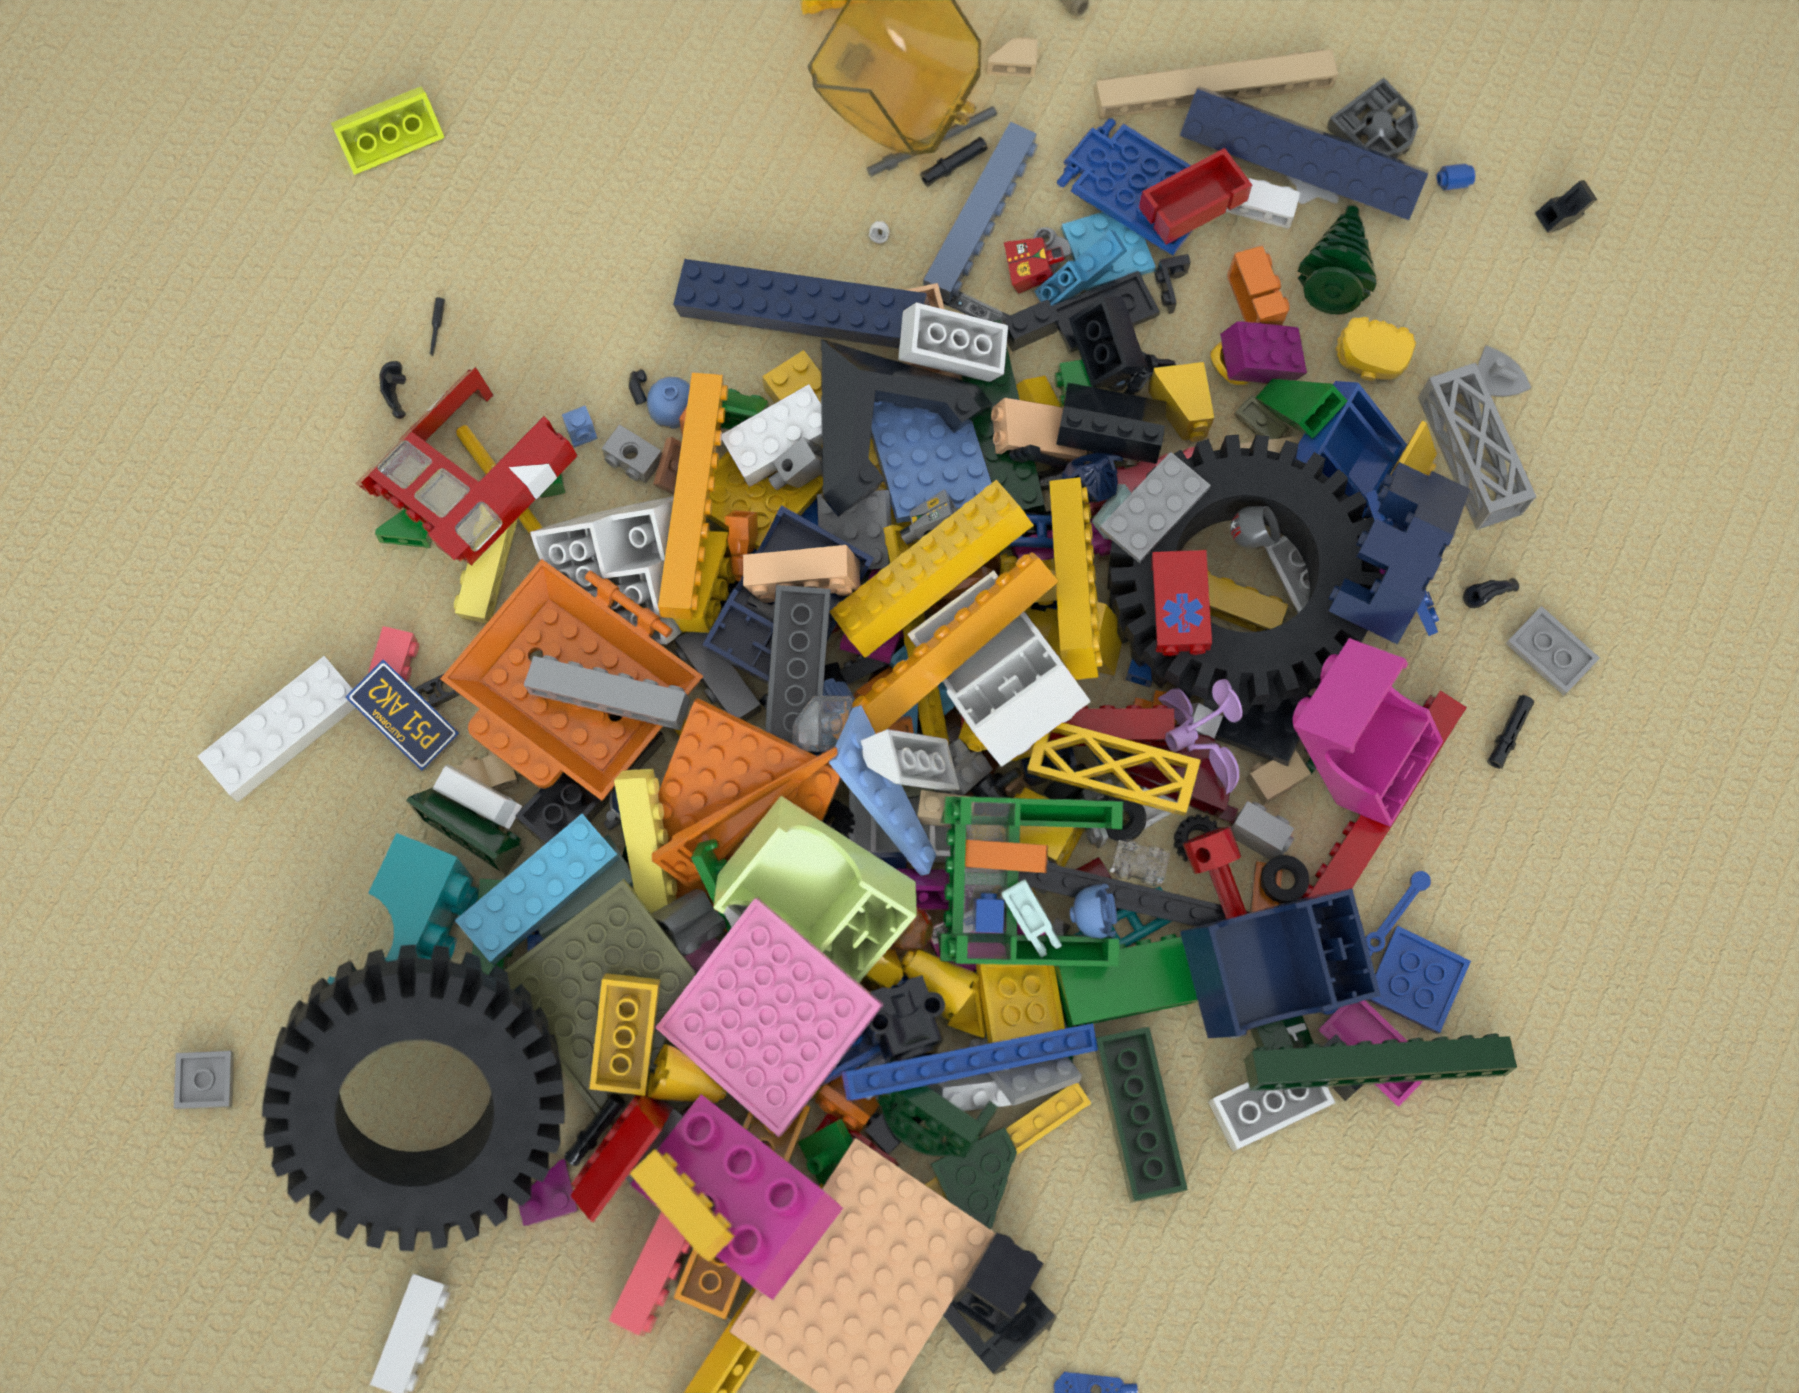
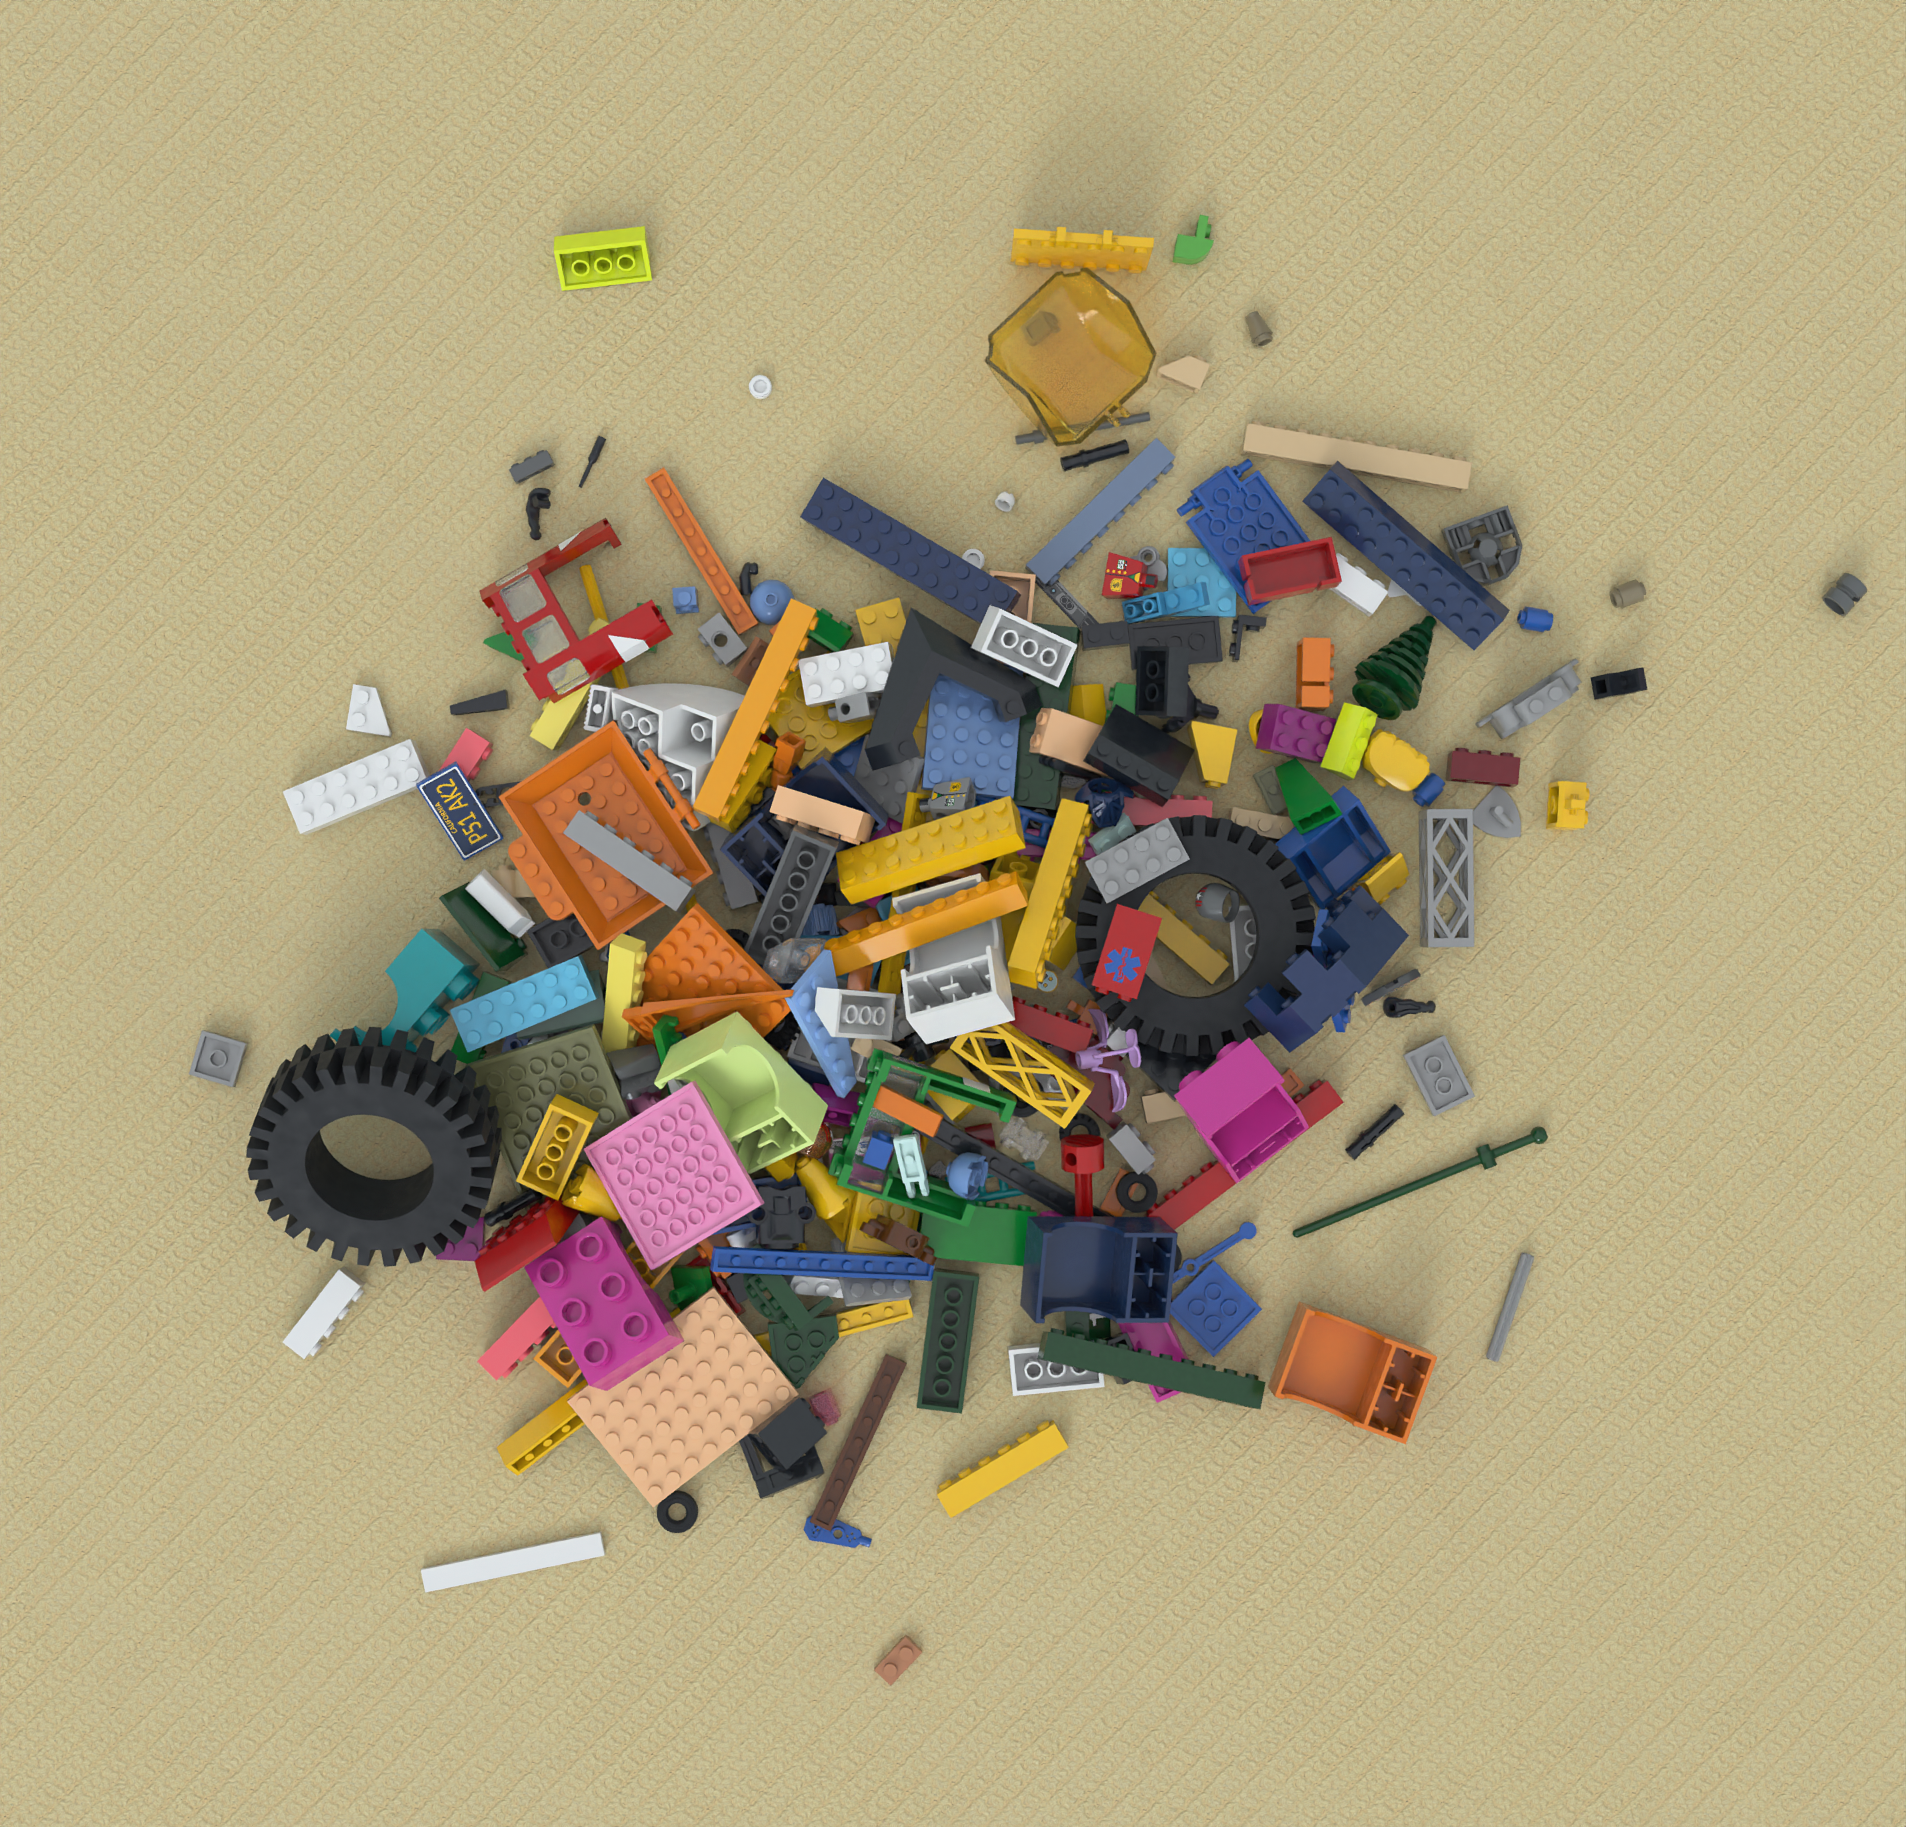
camera: 30 degrees right, 15 degrees up
(268, 650) = (367, 712): none -> white wing
(374, 349) = (531, 466): none -> dark grey piece
(395, 600) = (487, 703): none -> black piece
(521, 555) = (599, 707): none -> white brick
(580, 375) = (701, 551): none -> orange plate
(589, 202) = (760, 387): none -> white tile
(682, 1205) = (555, 1305): yellow brick -> none
(1031, 1239) = (826, 1406): none -> clear pink brick
(1047, 1005) = (900, 1237): none -> reddish brown piece
(1080, 1272) = (858, 1442): none -> reddish brown plate
(1101, 691) = (1050, 982): none -> light aqua tile
(1254, 1244) = (1001, 1468): none -> yellow brick
(1321, 341) = (1349, 741): none -> neon yellow slope
(1419, 370) = (1428, 790): none -> blue brick
(1461, 579) = (1390, 987): none -> dark grey tile
(1466, 331) = (1483, 768): none -> dark red brick
(1481, 262) = (1534, 701): none -> light grey brick
(1535, 125) = (1627, 594): none -> dark tan brick
(1566, 336) = (1567, 805): none -> yellow hinge
(1601, 990) = (1352, 1372): none -> orange piece
(1636, 717) = (1485, 1157): none -> dark green bar
(1733, 869) = (1510, 1307): none -> light grey axle
(1745, 59) = (1841, 597): none -> dark grey wheel

